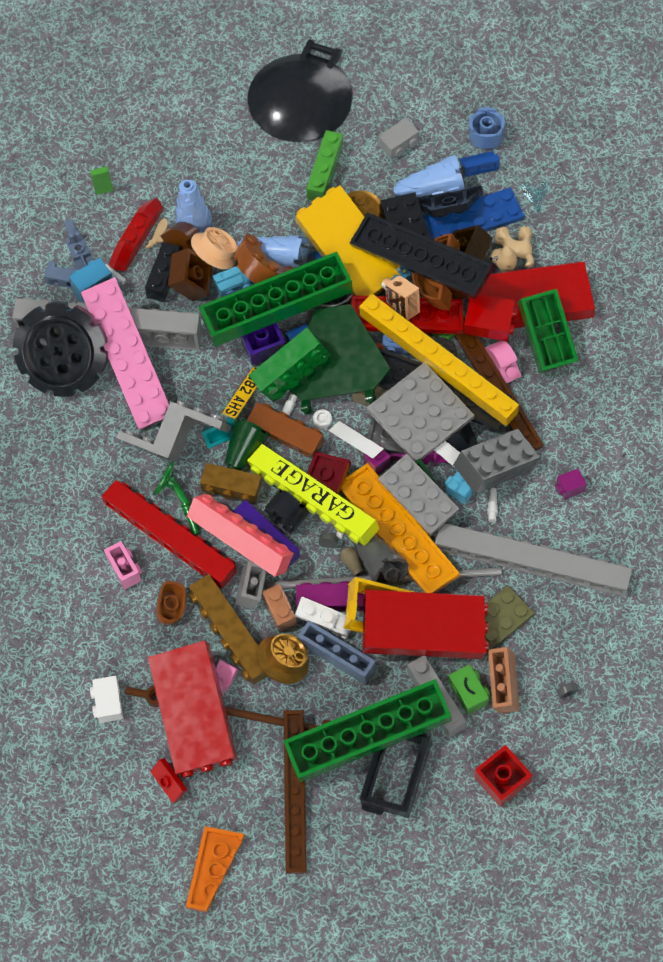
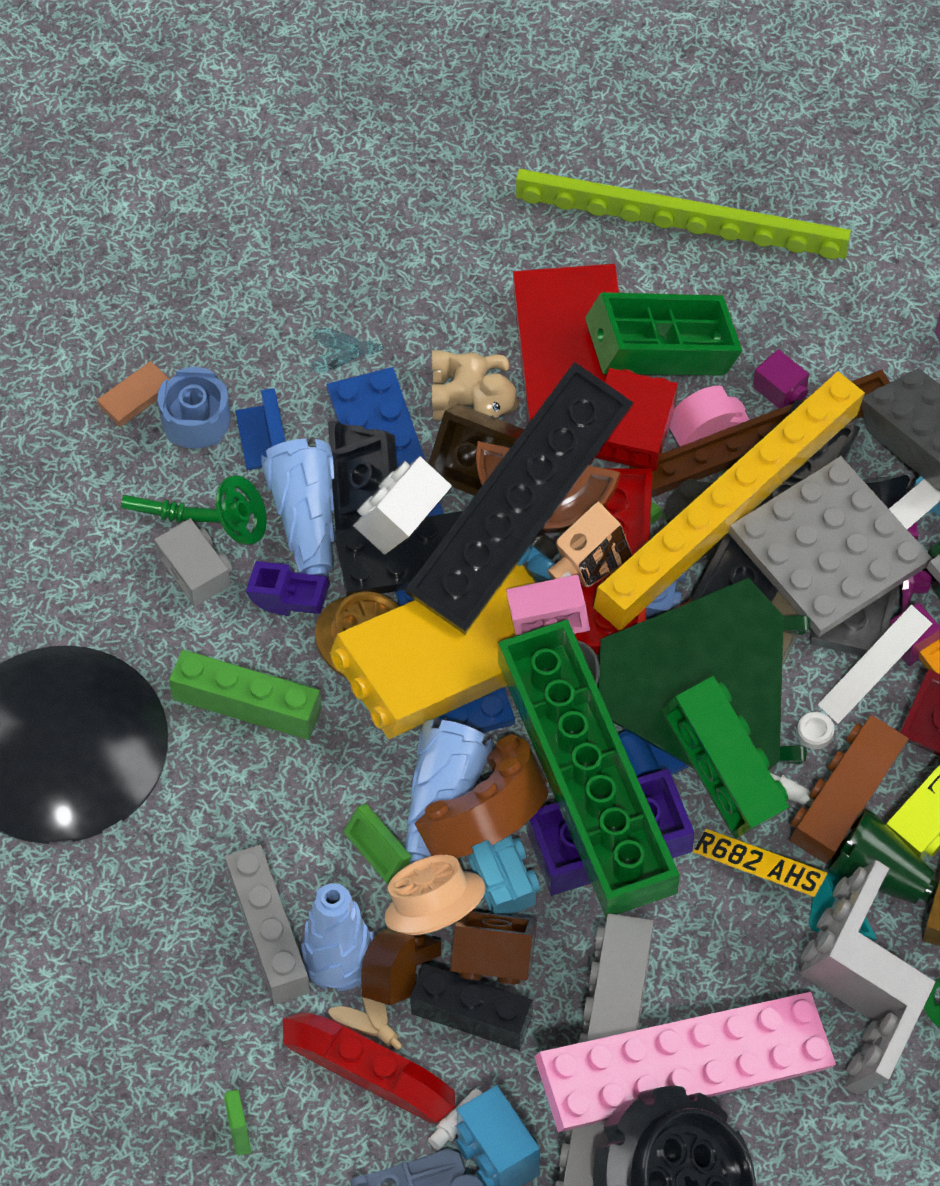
camera: 90 degrees left, 5 degrees down
(210, 183) = (267, 924): none -> light grey brick
(248, 227) = (376, 843): none -> bright green tile
(365, 278) = (548, 604): none -> bright pink brick
(385, 177) = (282, 591): none -> dark purple brick
(422, 210) = (400, 504): none -> white brick
(427, 148) = (228, 514): none -> green dish
(495, 101) = (132, 394): none -> nougat tile
(531, 395) = (781, 380): none -> magenta brick
(635, 351) = (682, 213): none -> lime plate

